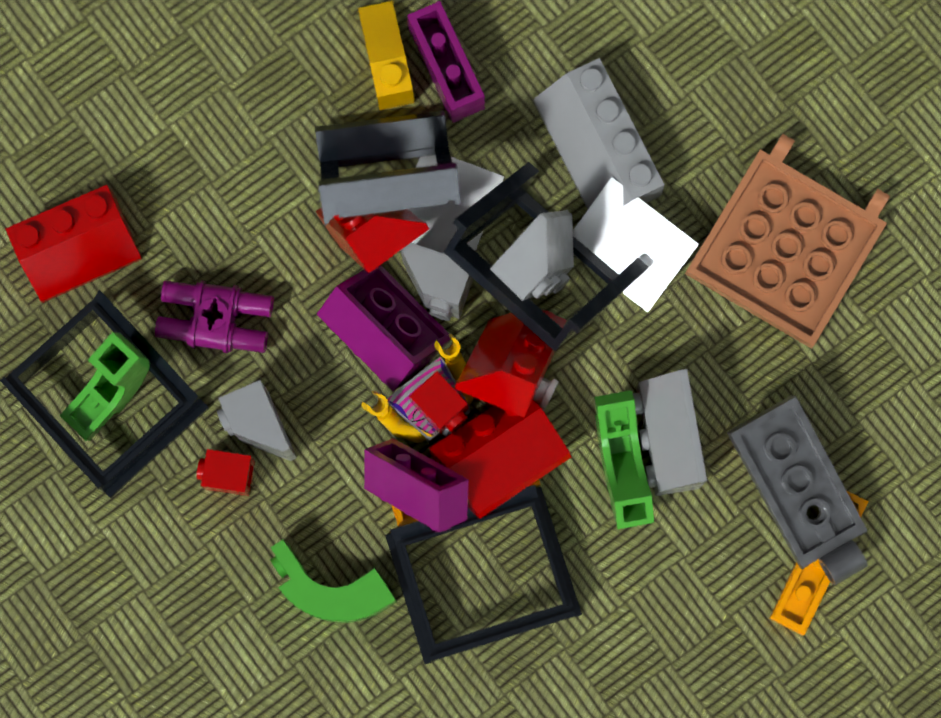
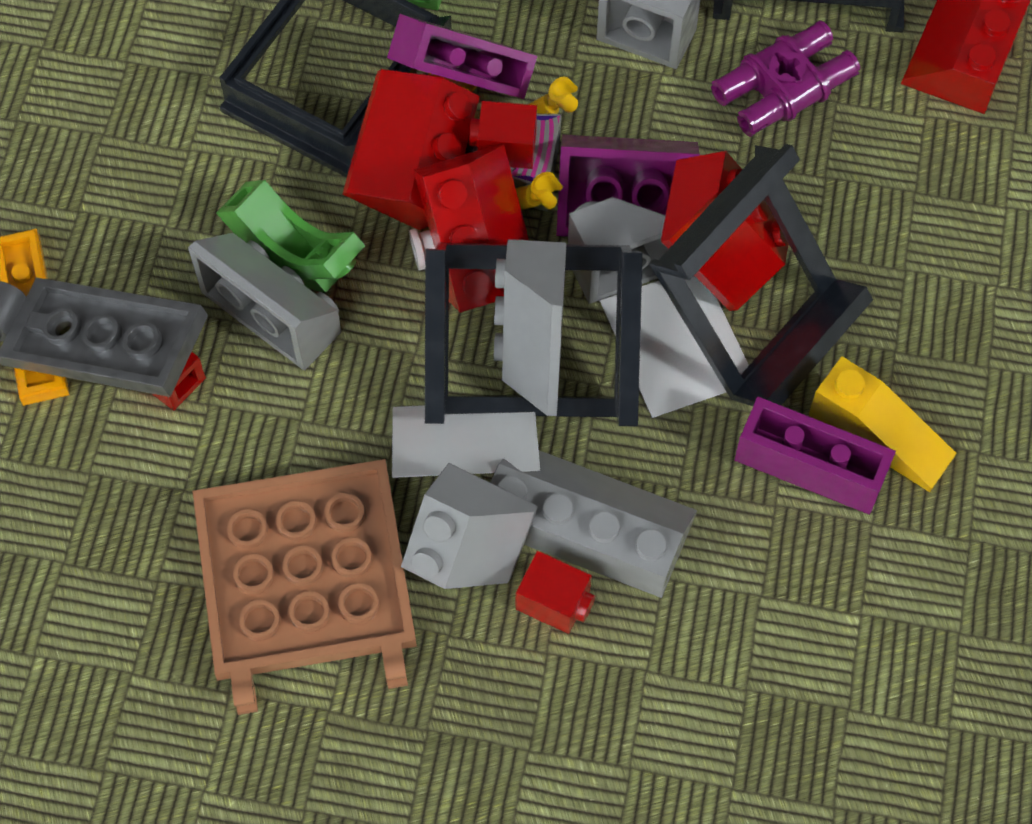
camera: 135 degrees right, 15 degrees down
(659, 113) = (555, 593): none -> red brick
(686, 181) = (467, 532): none -> light grey slope

